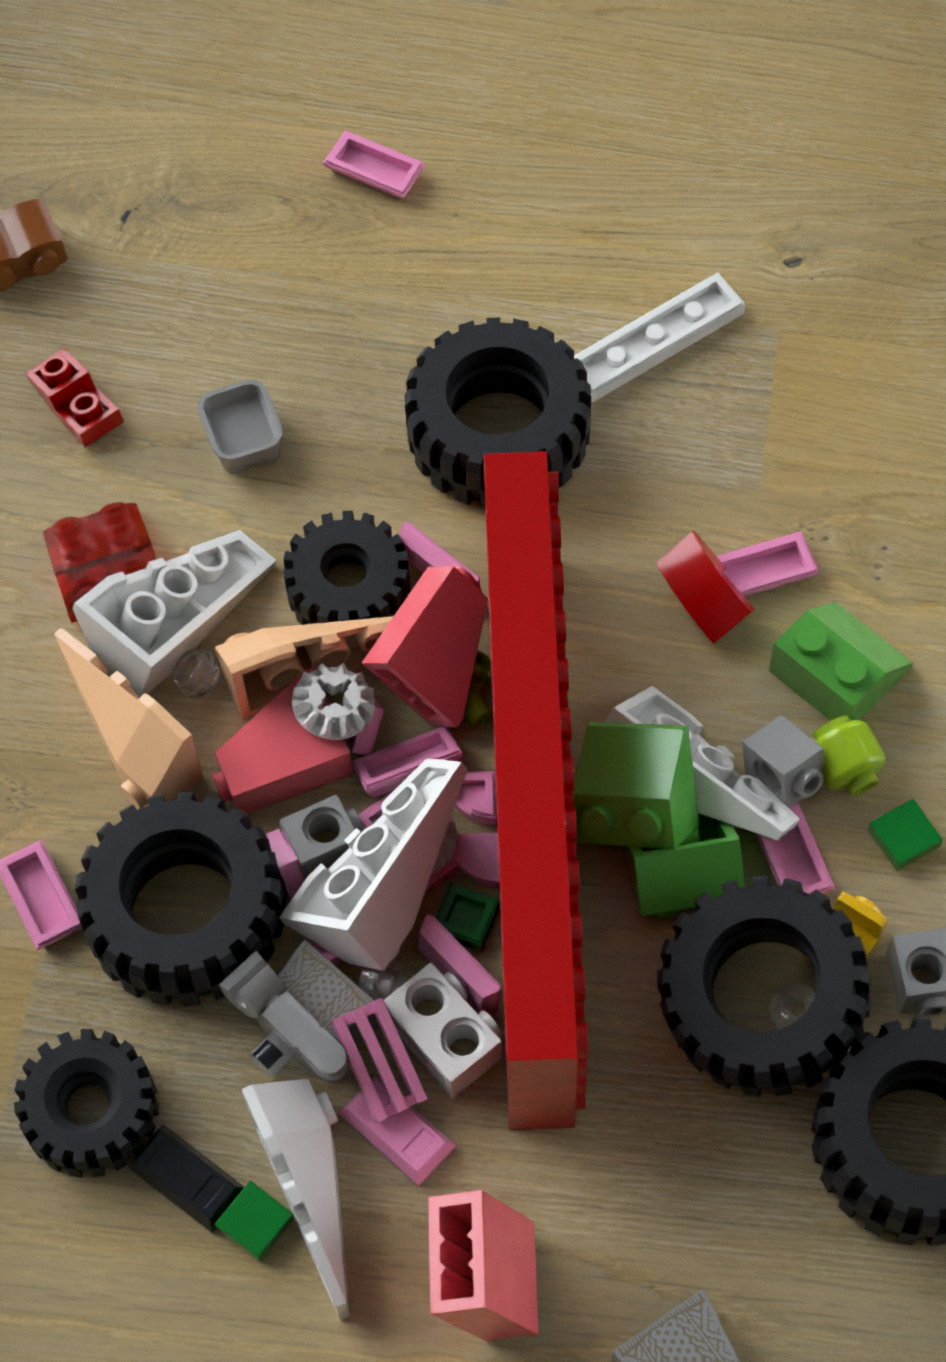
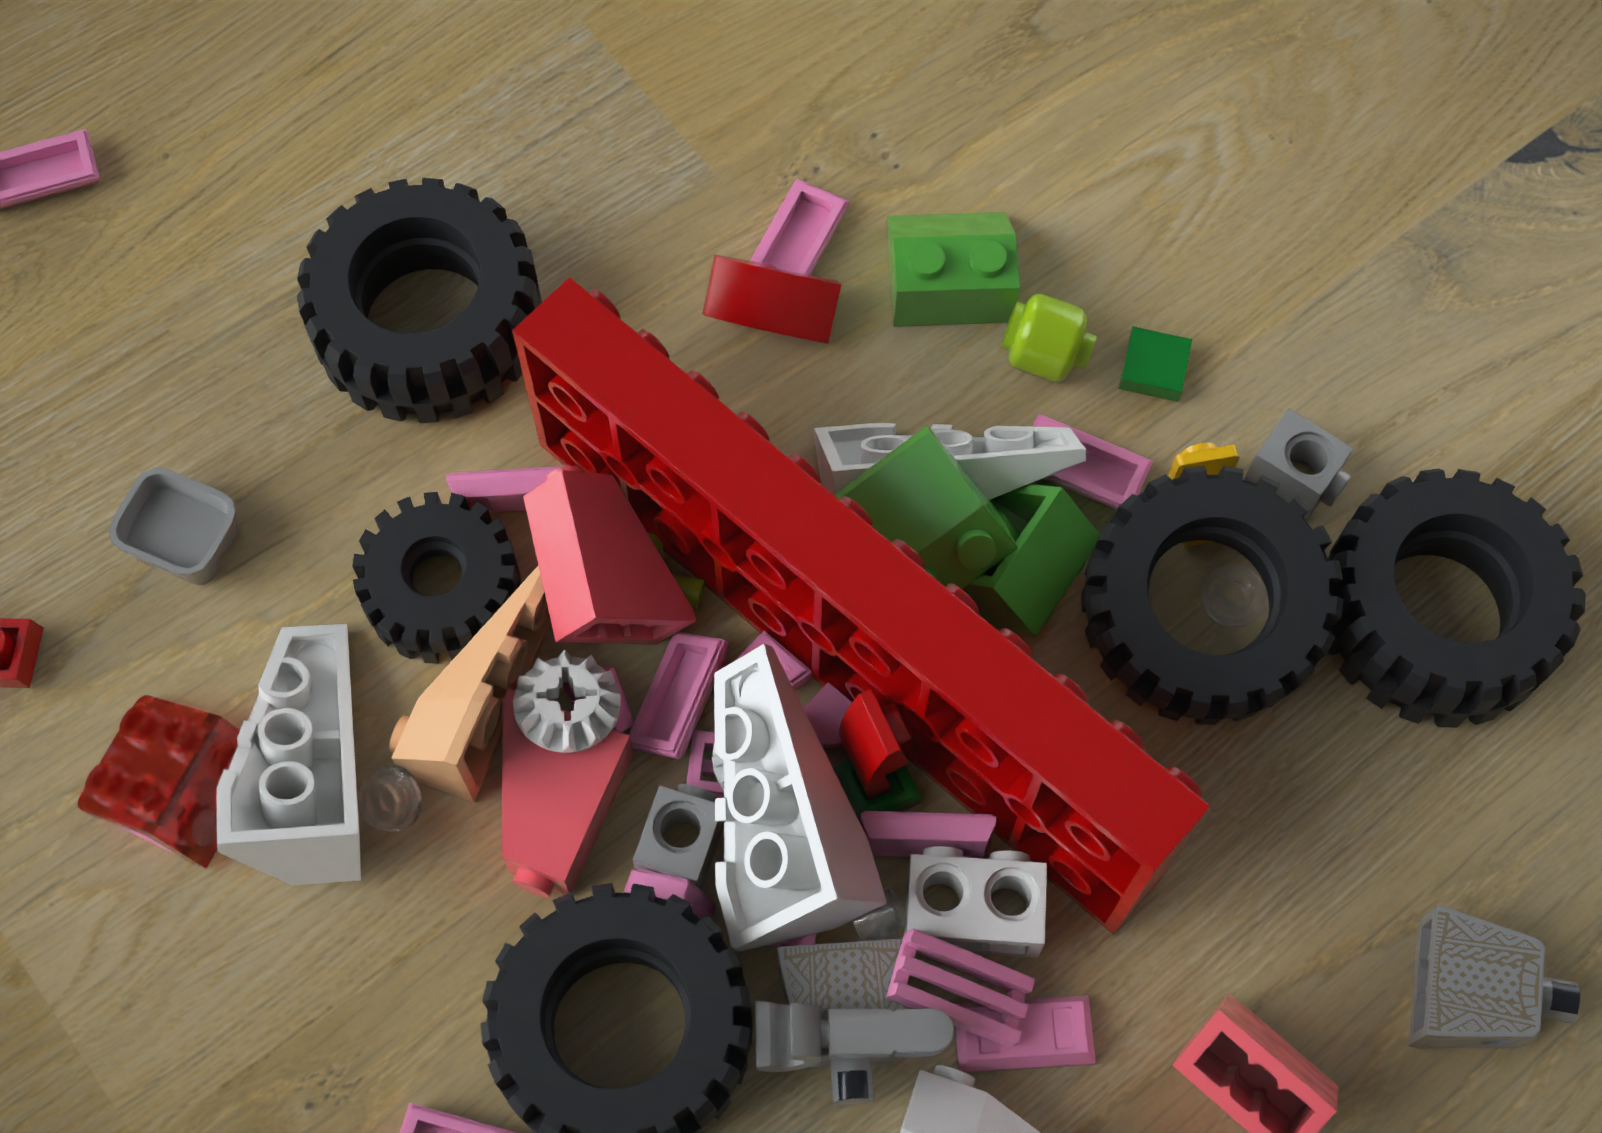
camera: 50 degrees left, 5 degrees up
(141, 737) = (420, 916): light nougat wedge -> none
(471, 879) = (873, 741): none -> red slope
(659, 334) = (483, 101): white tile -> none
(785, 760) = (1007, 388): light grey brick -> none

